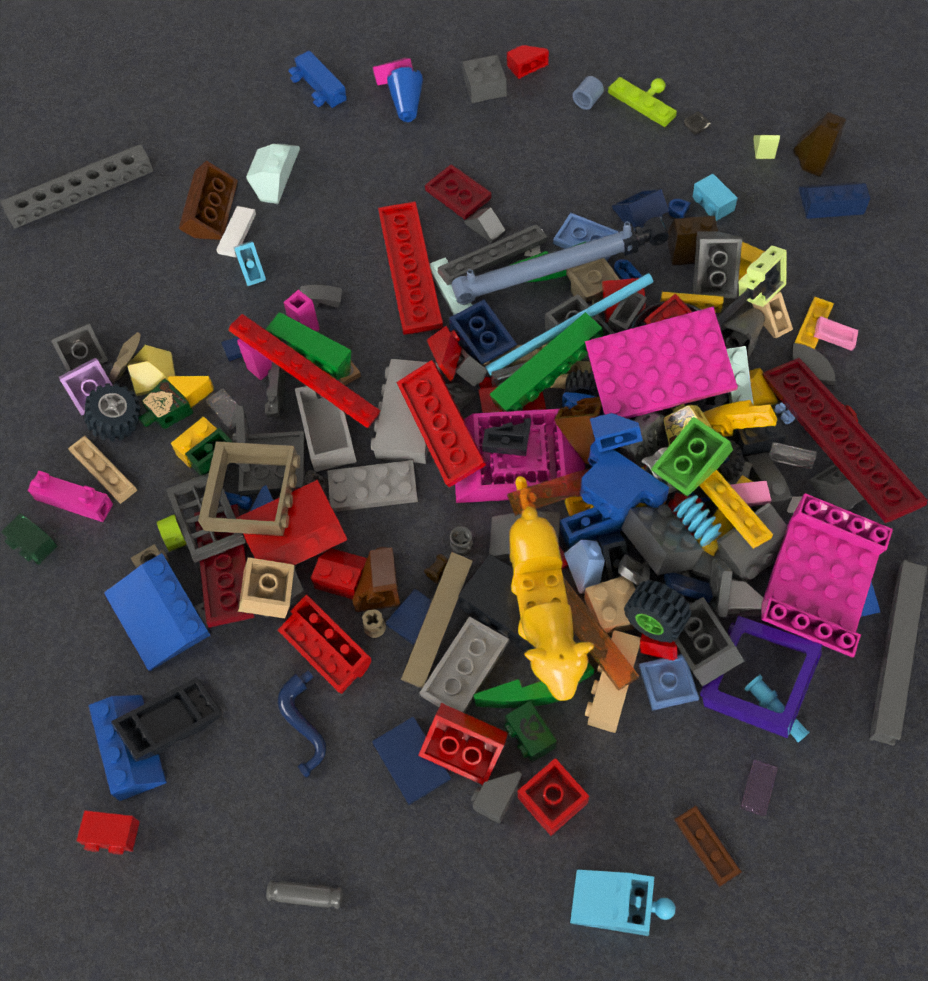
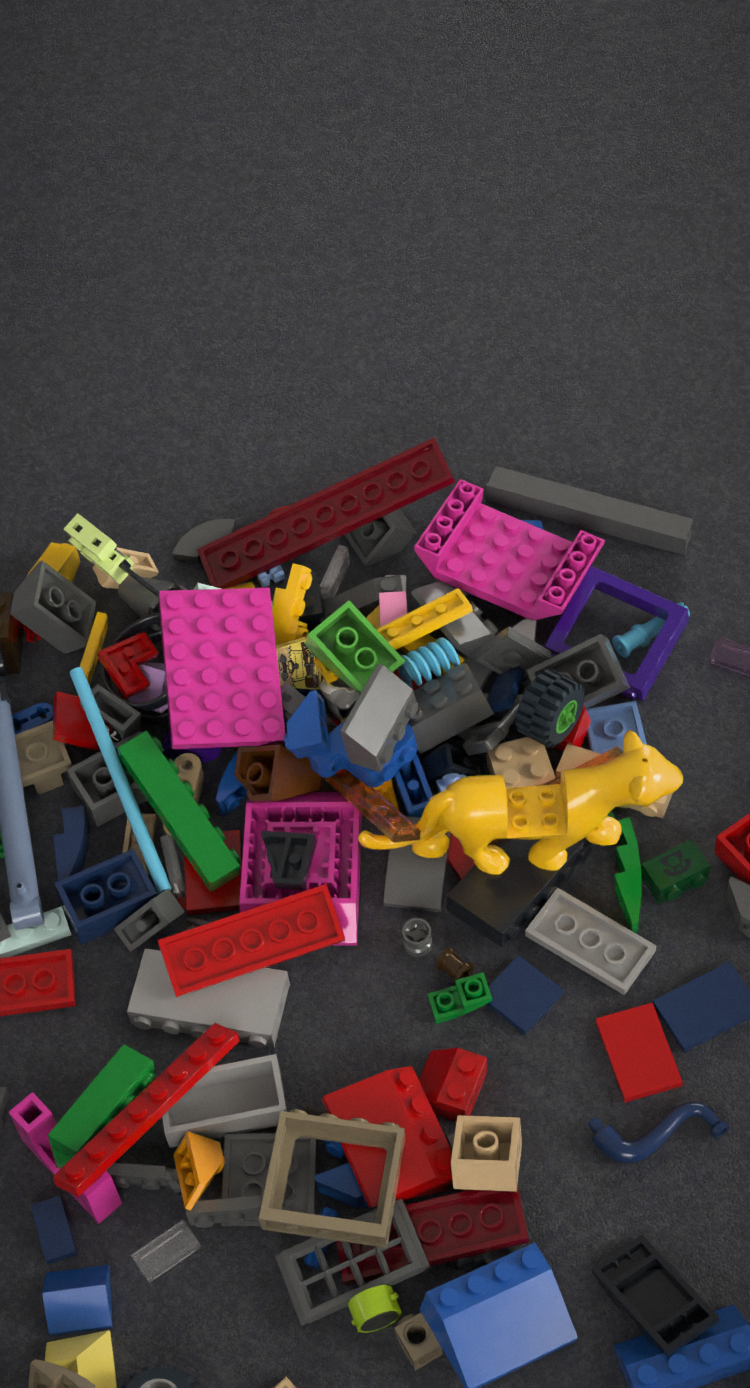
camera: 85 degrees left, 5 degrees down
(164, 406) = (150, 1336): torso -> none
(192, 387) = (127, 1303): yellow slope -> none
(192, 437) = (224, 1284): yellow brick -> none
(198, 359) = (78, 1300): none -> blue slope
(201, 454) = (249, 1258): dark green brick -> none
(271, 413) = (196, 1164): none -> light orange slope
(325, 644) = (558, 1098): red brick -> none
(370, 708) = (638, 1052): none -> red tile
(372, 486) = (318, 1046): light grey plate -> none
(373, 630) = (526, 1053): dark tan bush -> none
(377, 582) = (468, 1026): reddish brown slope -> none
(412, 574) = (460, 999): none -> green slope
(436, 620) = (528, 966): dark tan tile -> none
(446, 350) = (121, 940): red slope -> none
(463, 744) = (692, 940): red slope -> none
(521, 312) = (73, 844): none -> dark blue slope
(581, 383) = (208, 777): black tyre -> none
(621, 474) = (378, 719): none -> slope
(806, 334) = (144, 531): yellow tile -> none
(836, 333) = (166, 509): bright pink tile -> none

